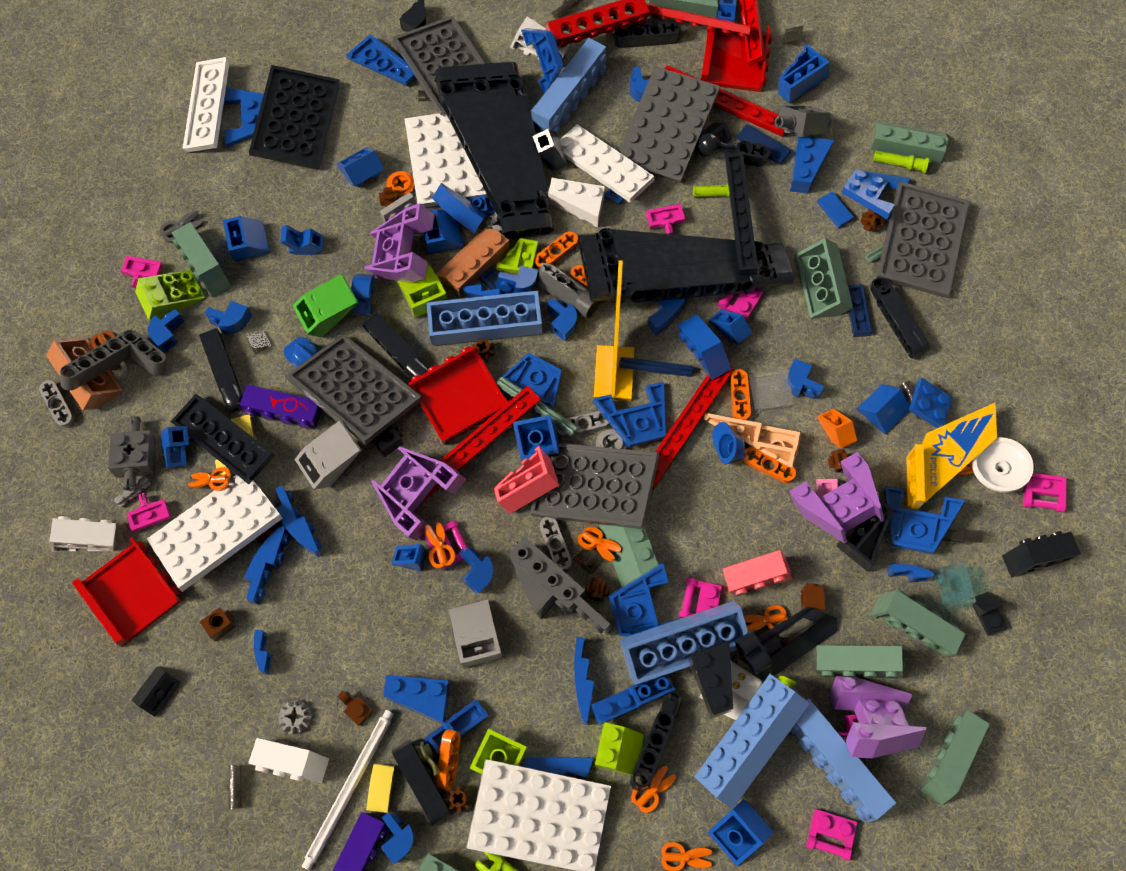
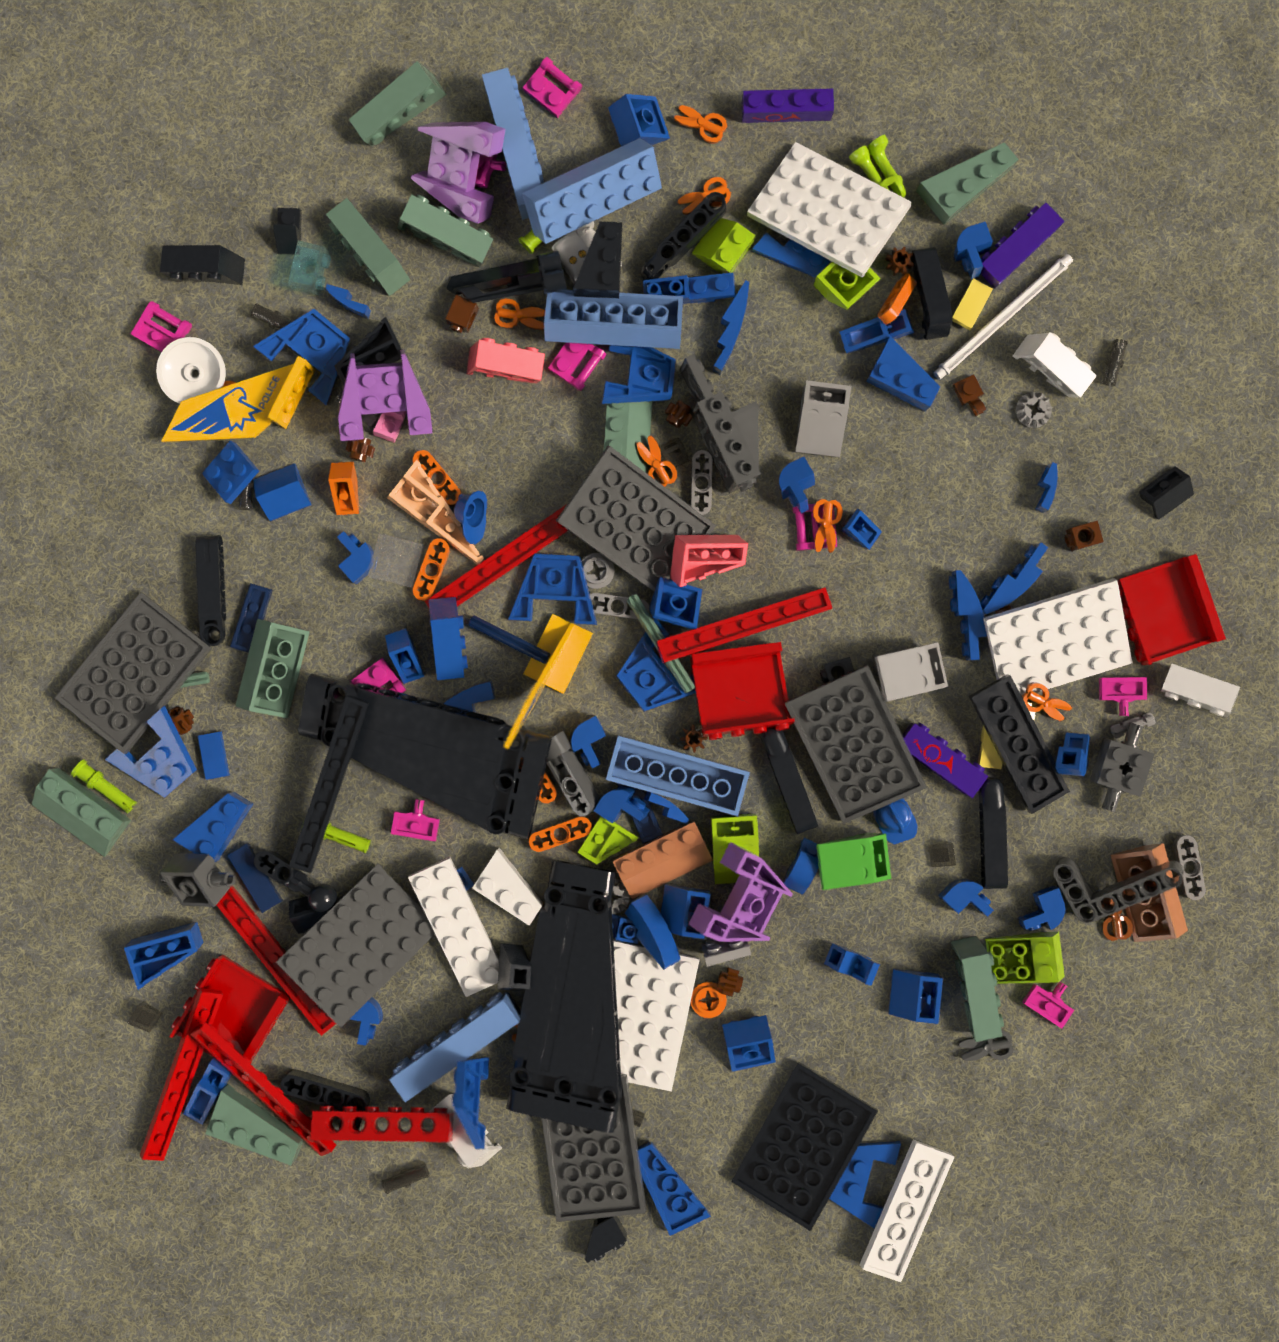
camera: 160 degrees left, 20 degrees up
(409, 486) = (832, 603): medium lavender wedge -> none
(425, 753) = (918, 314): olive plate -> none

